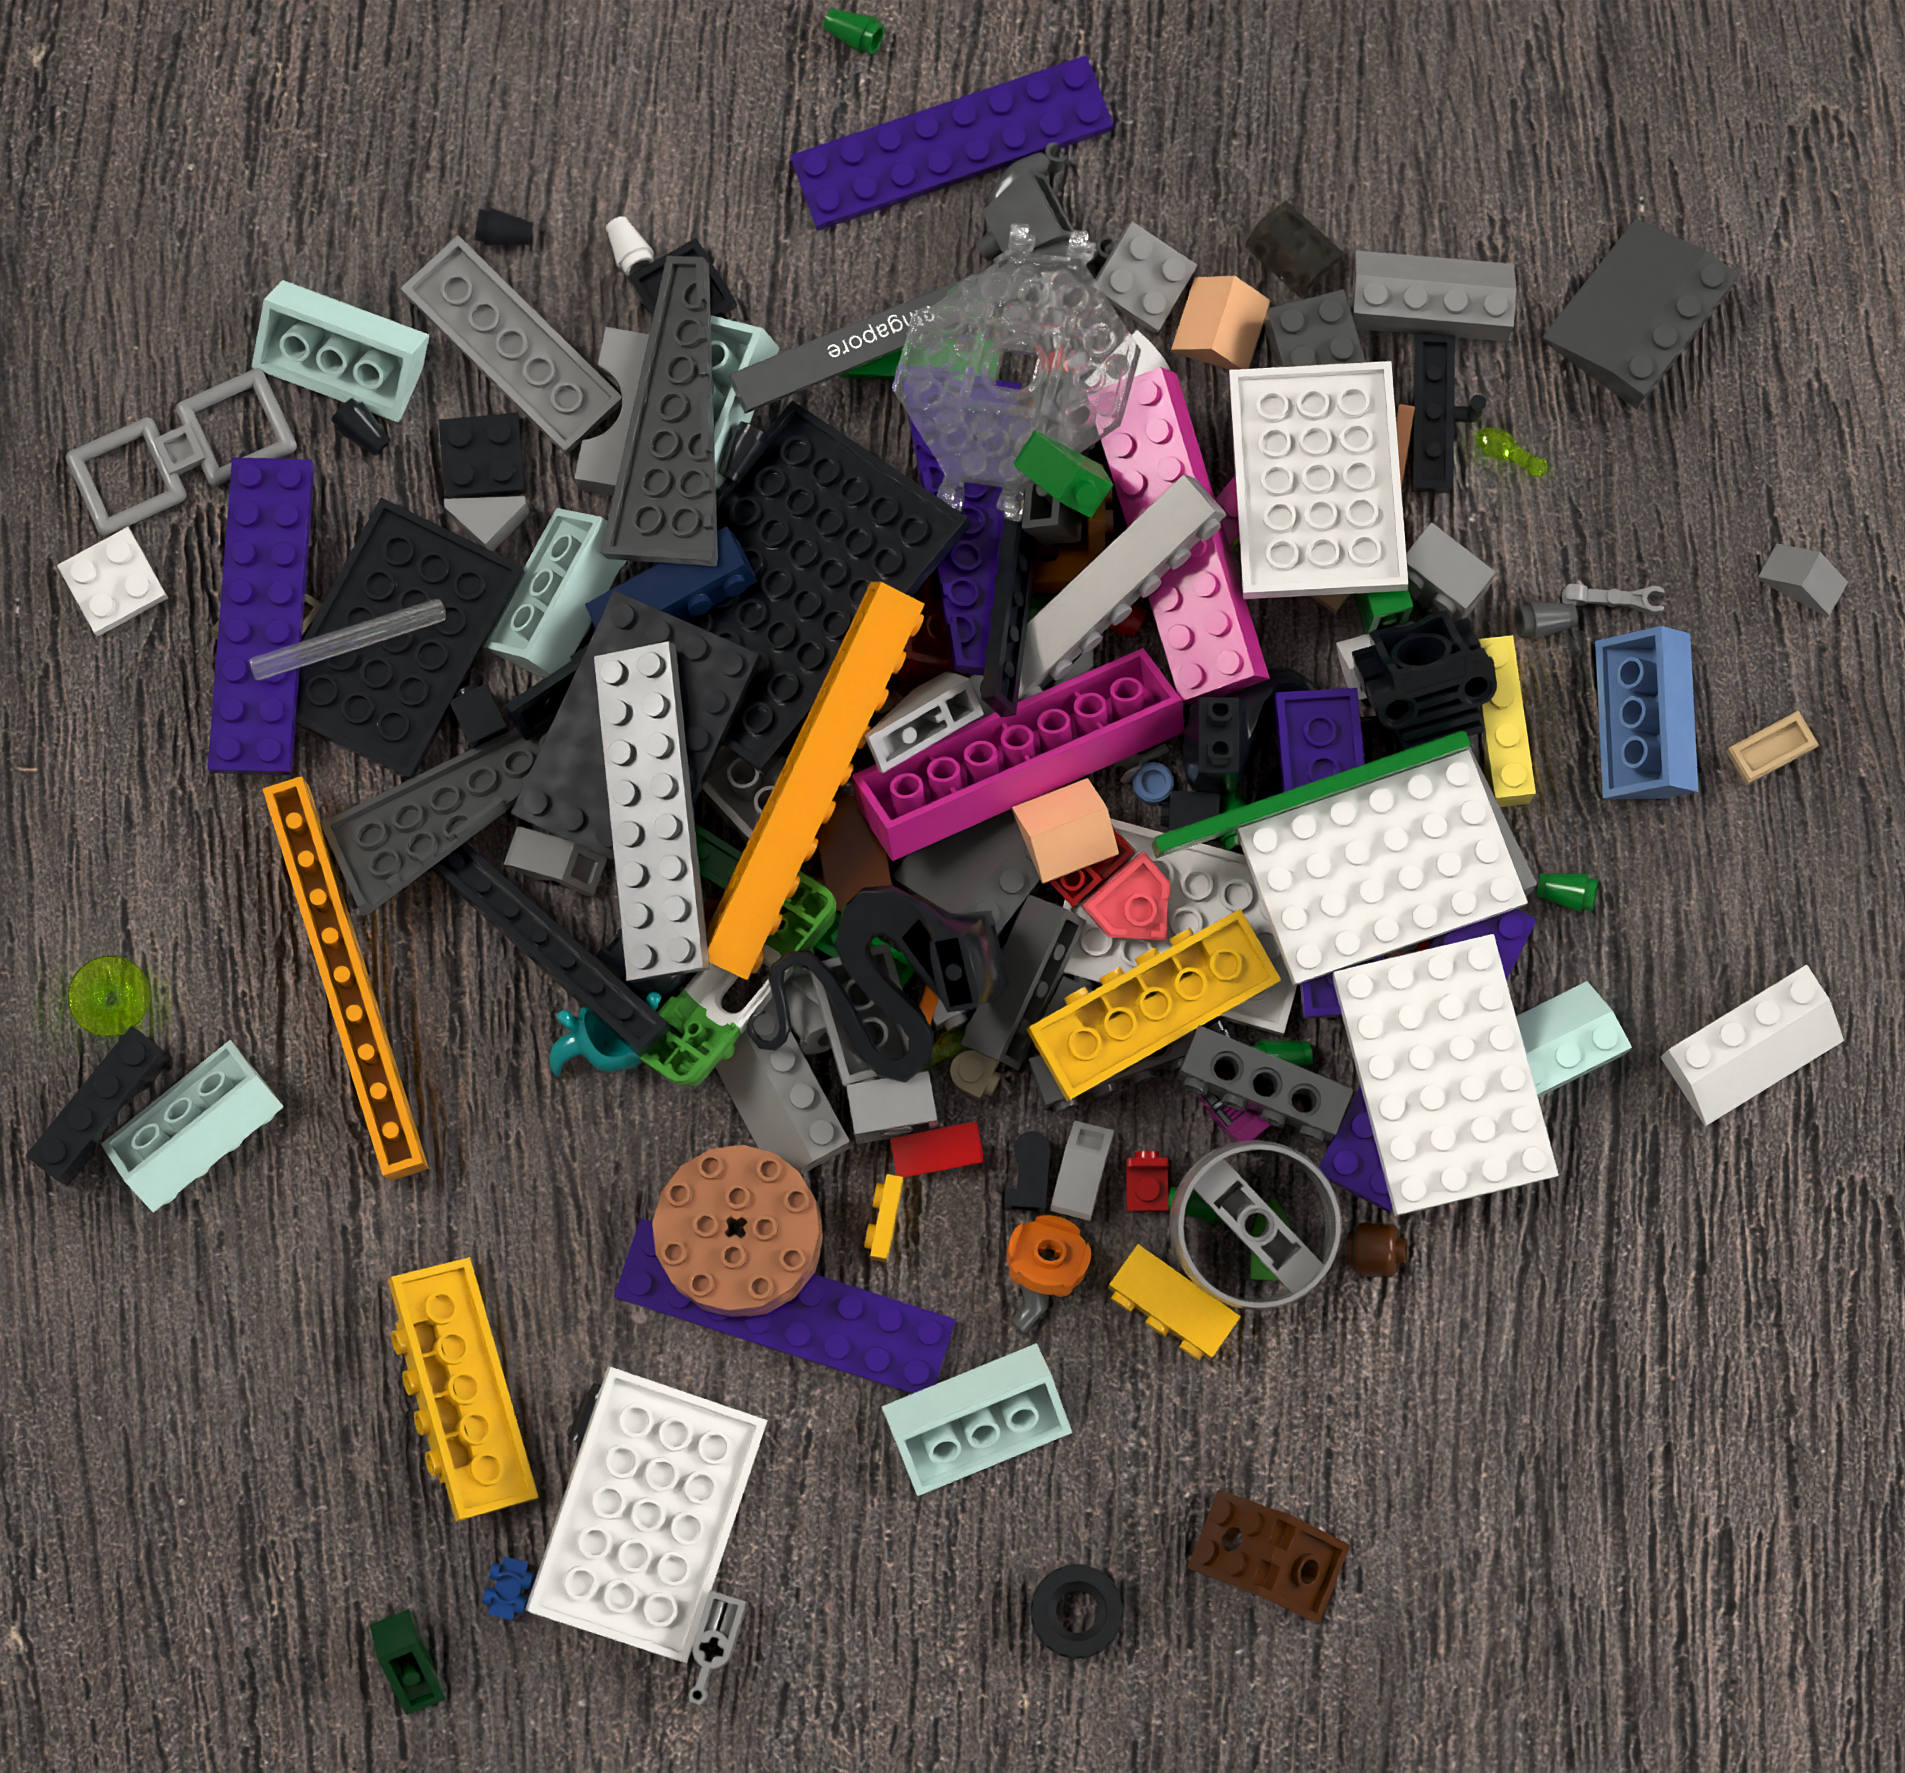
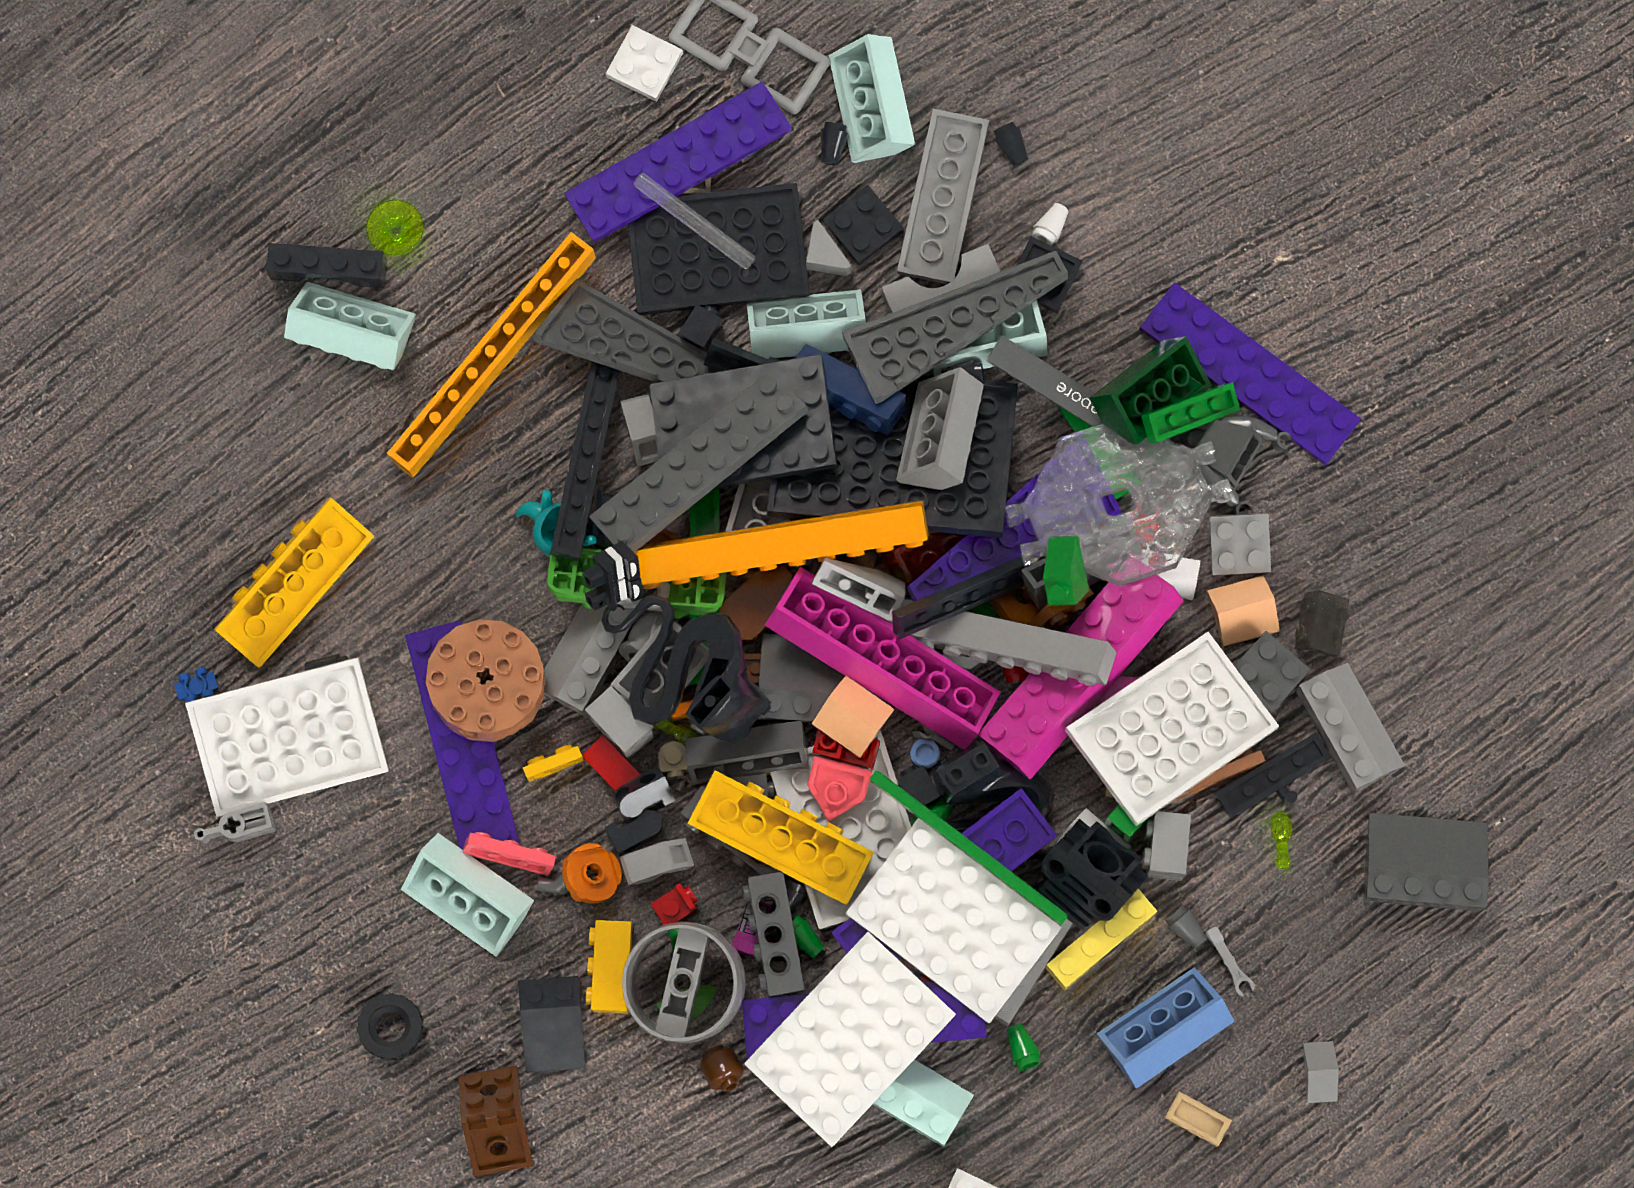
camera: 60 degrees right, 0 degrees up
(406, 1661) = (116, 655): dark green slope -> none
(724, 994) = (615, 577): none -> black hips
(795, 515) = (940, 430): none -> light grey slope
(856, 30) = (1281, 271): green cone -> none
(904, 254) = (1154, 381): none -> dark green slope
(961, 228) = (1190, 413): none -> green plate
(962, 1336) = (509, 853): none -> coral plate
(993, 1133) = (642, 792): none -> leg
(1197, 1416) = (552, 1024): none -> black slope

